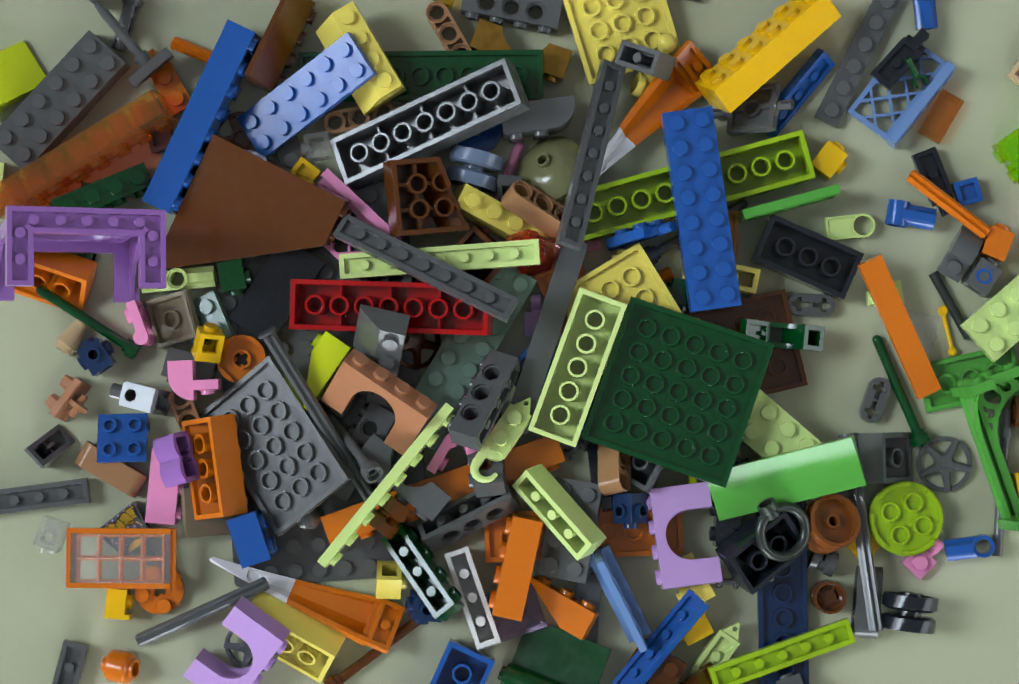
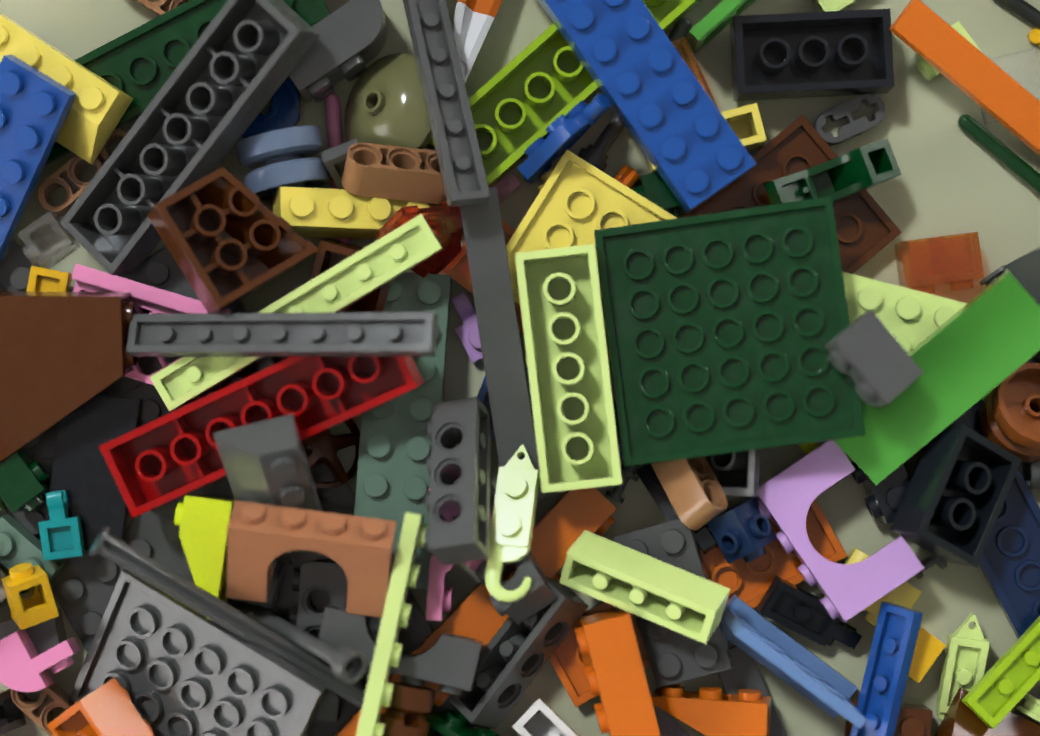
camera: 30 degrees left, 0 degrees up
(240, 344) = (66, 591): orange plate -> none
(243, 317) = (60, 535): none -> teal plate
(642, 575) = (804, 614): none -> black hinge
(750, 447) = (872, 360): none -> dark grey brick
(769, 510) = (944, 434): pearl dark grey piece -> none
(820, 412) = (939, 262): none -> clear orange brick
(868, 398) = (995, 207): dark grey beam -> none

